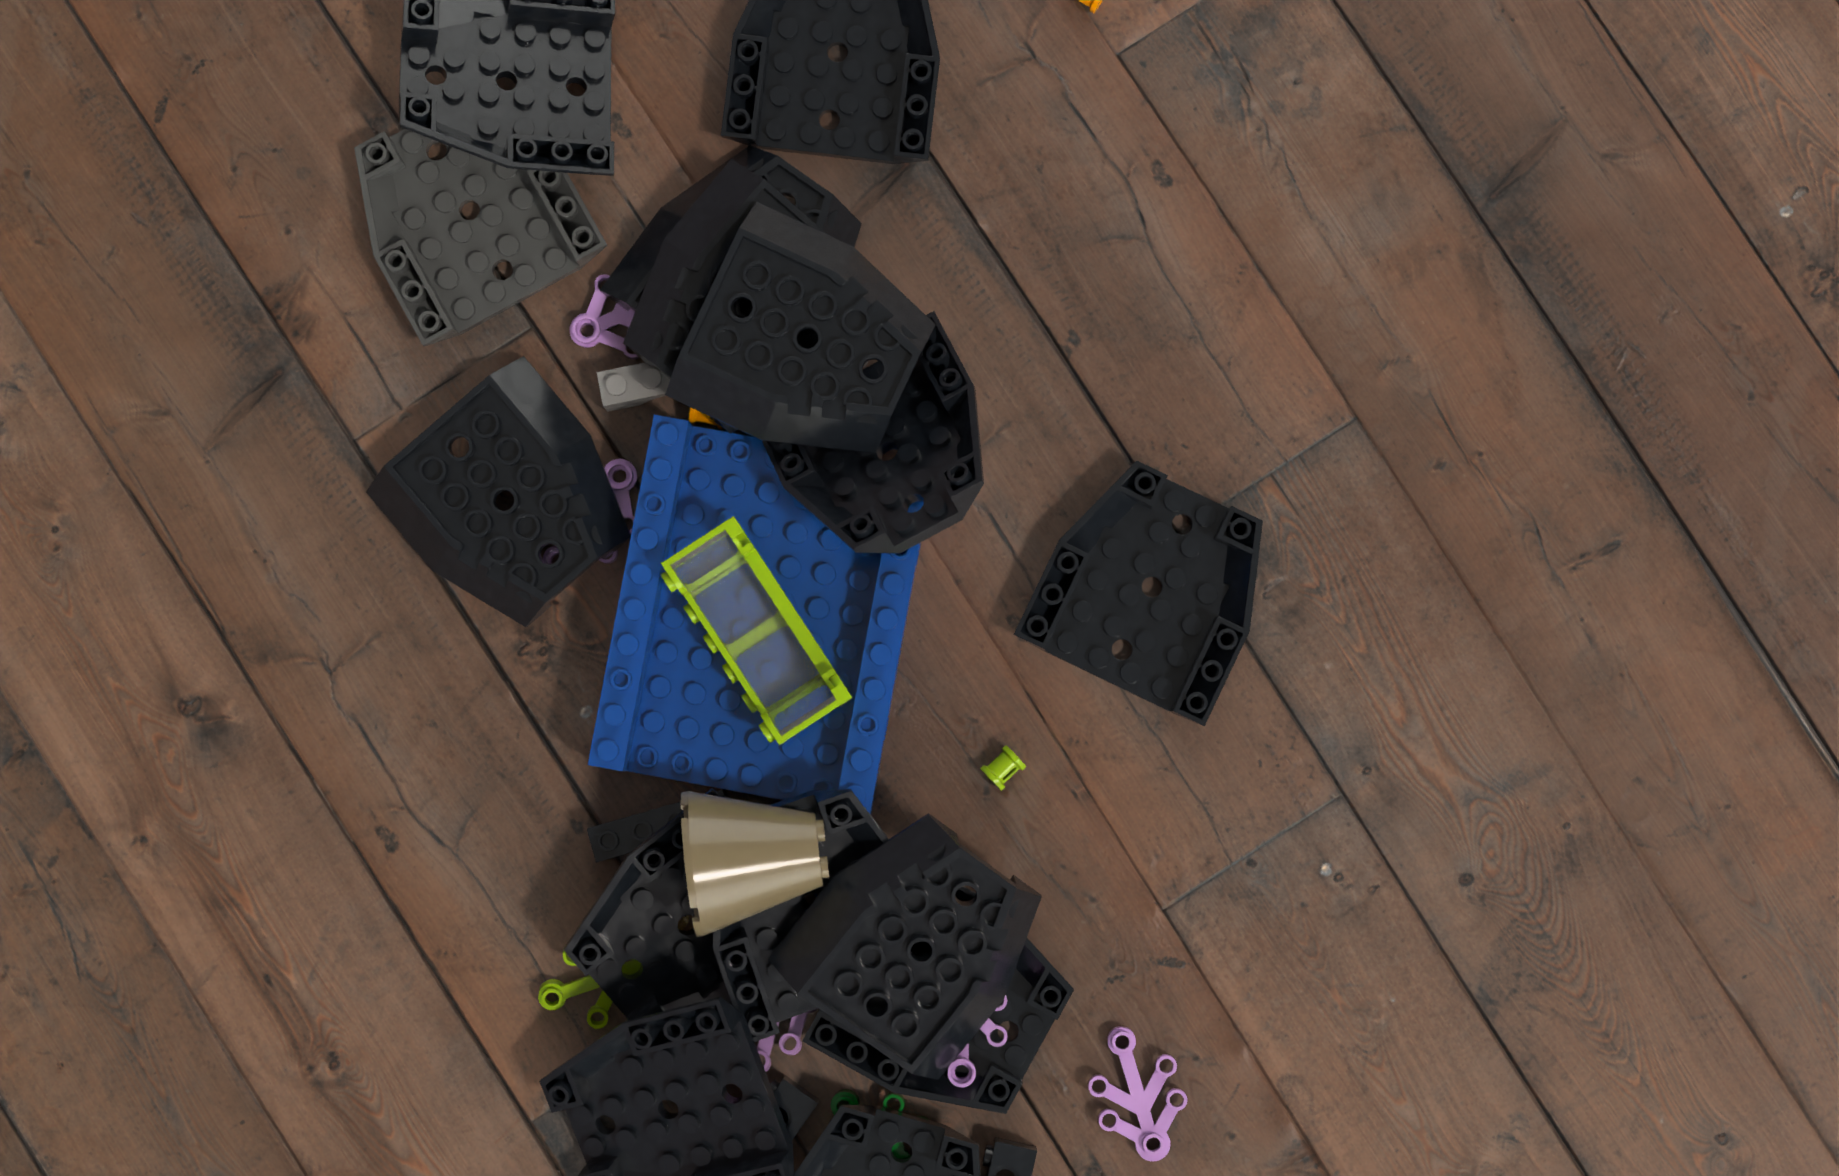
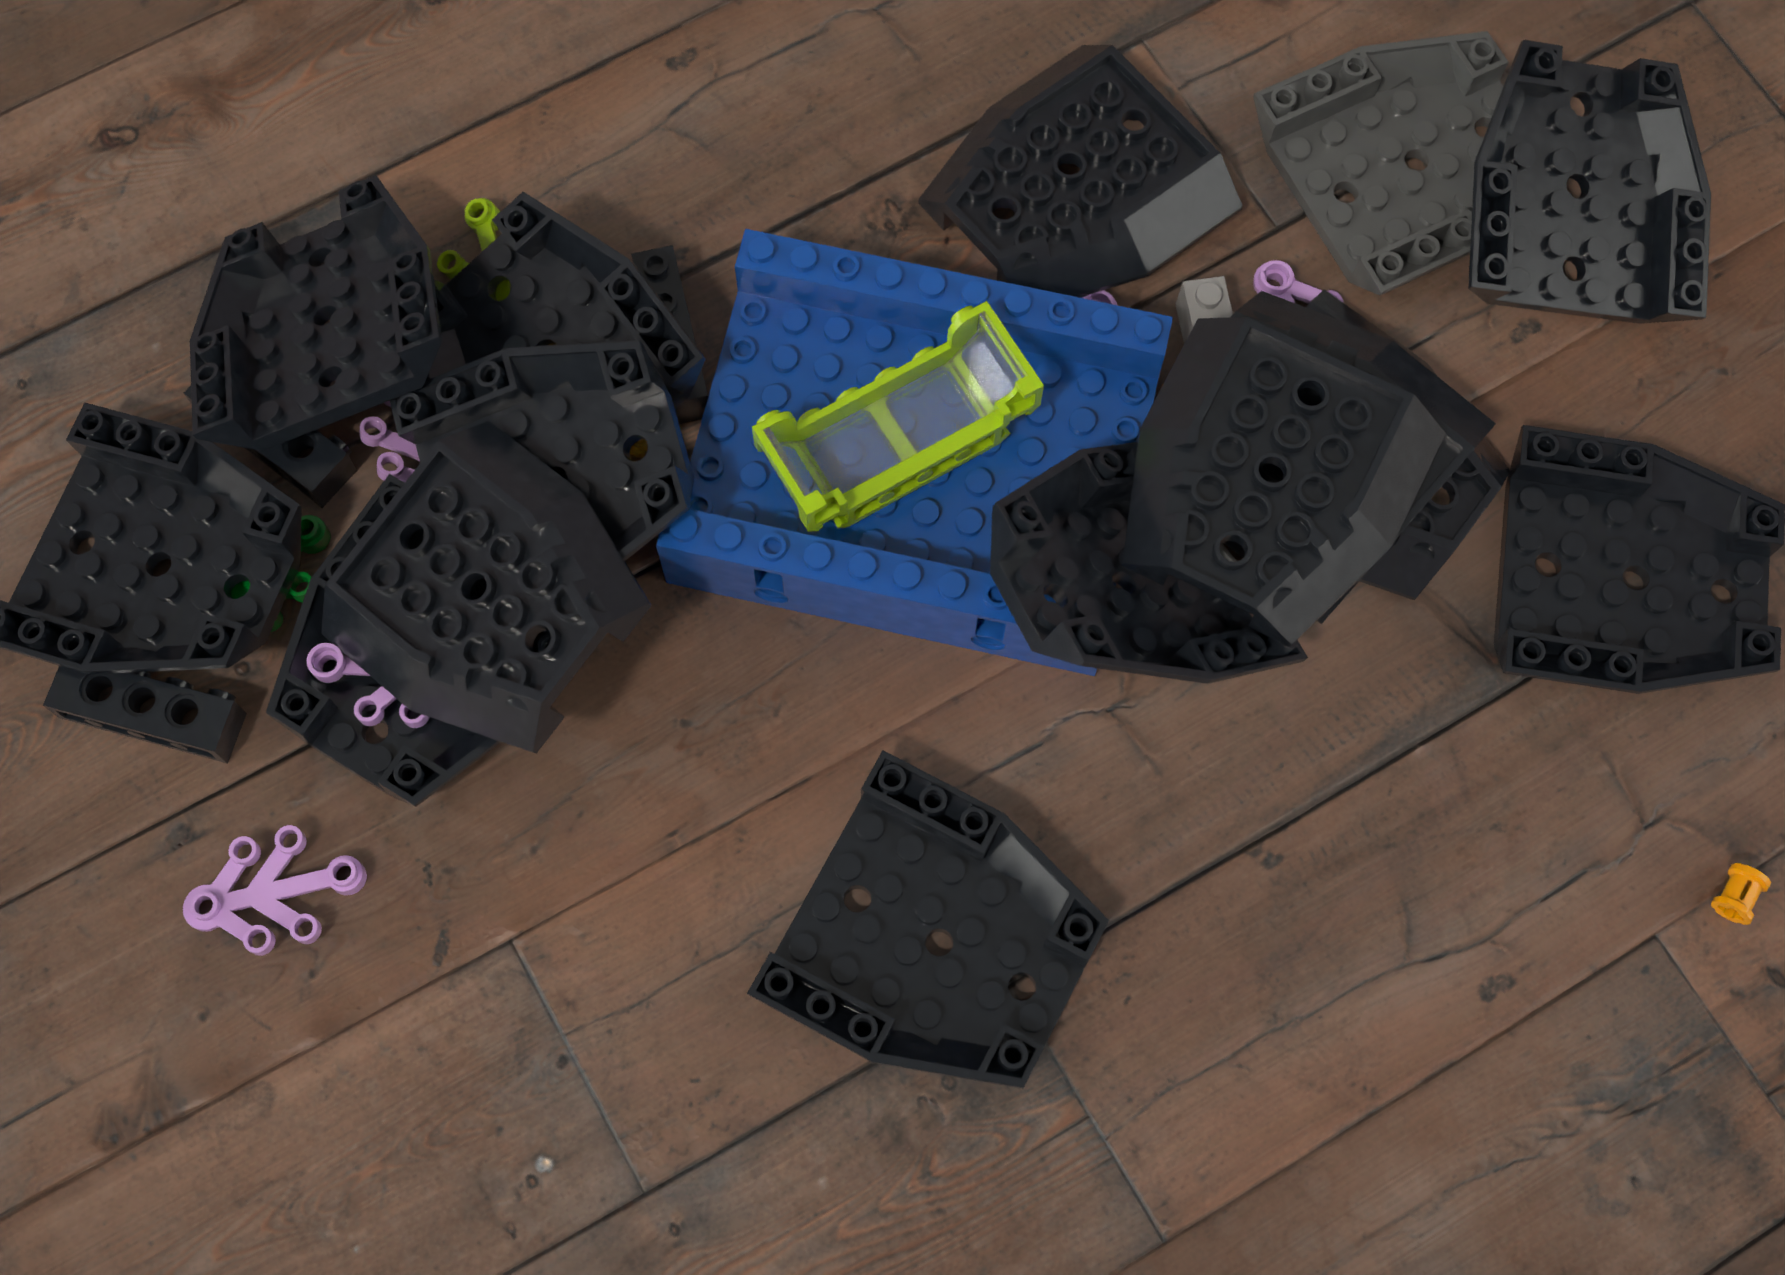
camera: 90 degrees right, 15 degrees down
(746, 857) = (613, 372): dark tan cone -> none
(1003, 767) = (712, 739): lime bush -> none

